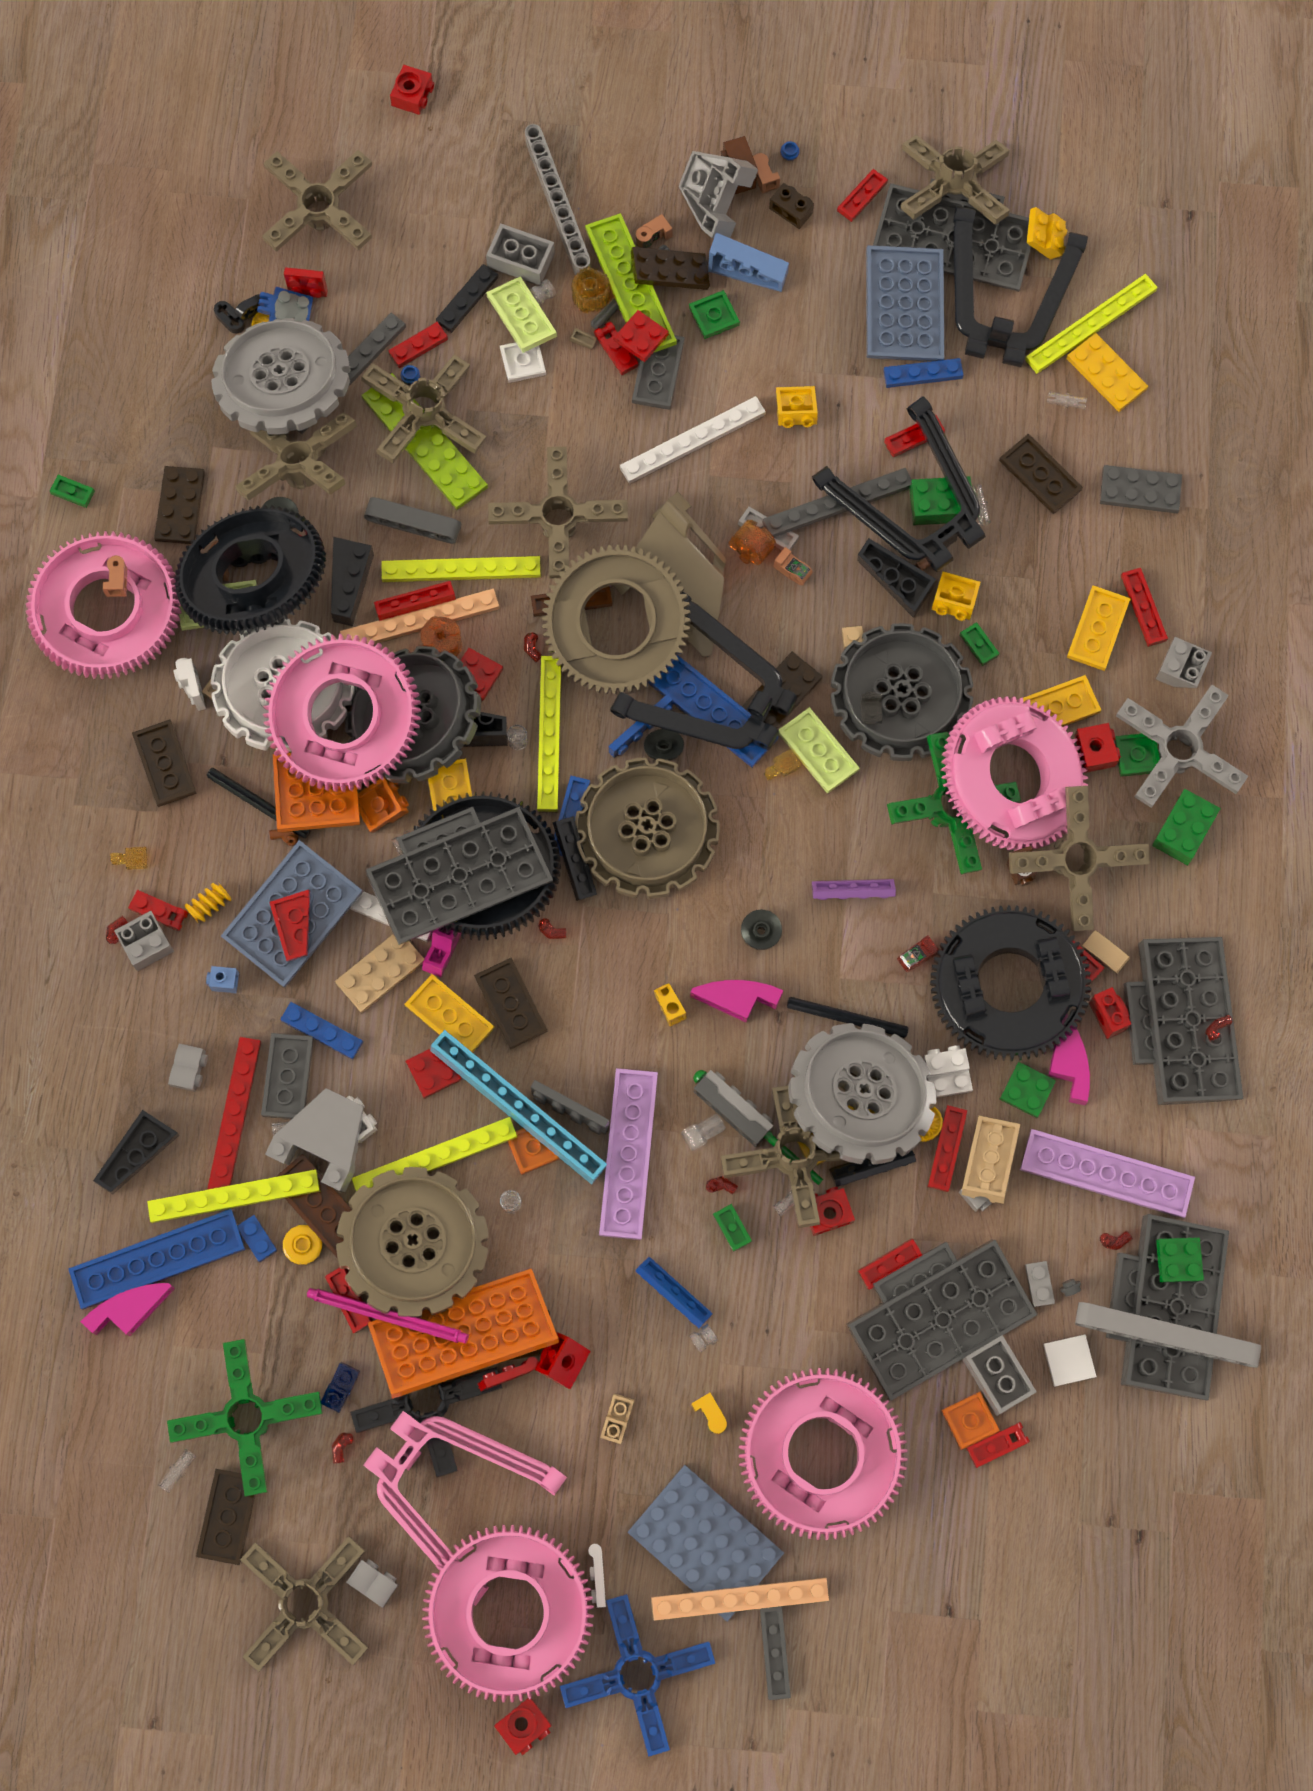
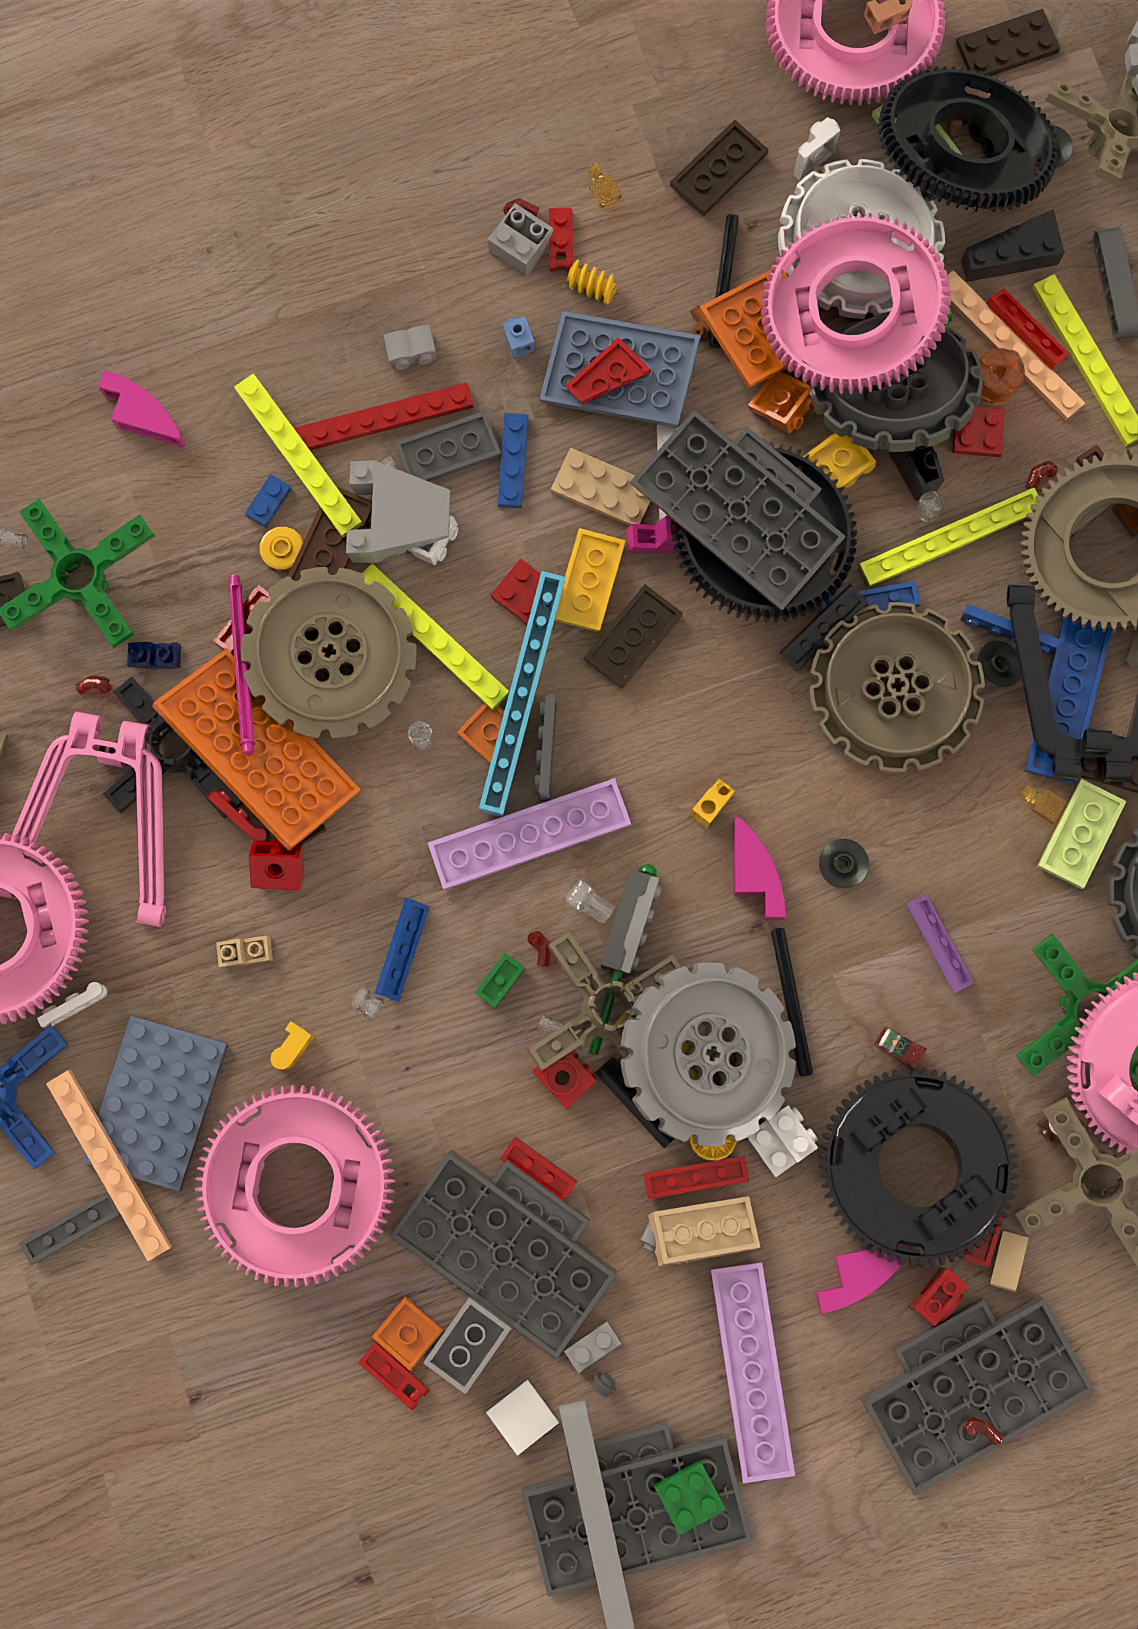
camera: 70 degrees right, 5 degrees up
(136, 1149) = (300, 337): black wedge -> none
(157, 1258) = (203, 414): blue plate -> none
(549, 931) = (731, 641): clear red arm -> none
(1027, 1090) = (806, 1239): green plate -> none
(1113, 1242) = (678, 1414): clear red arm -> none

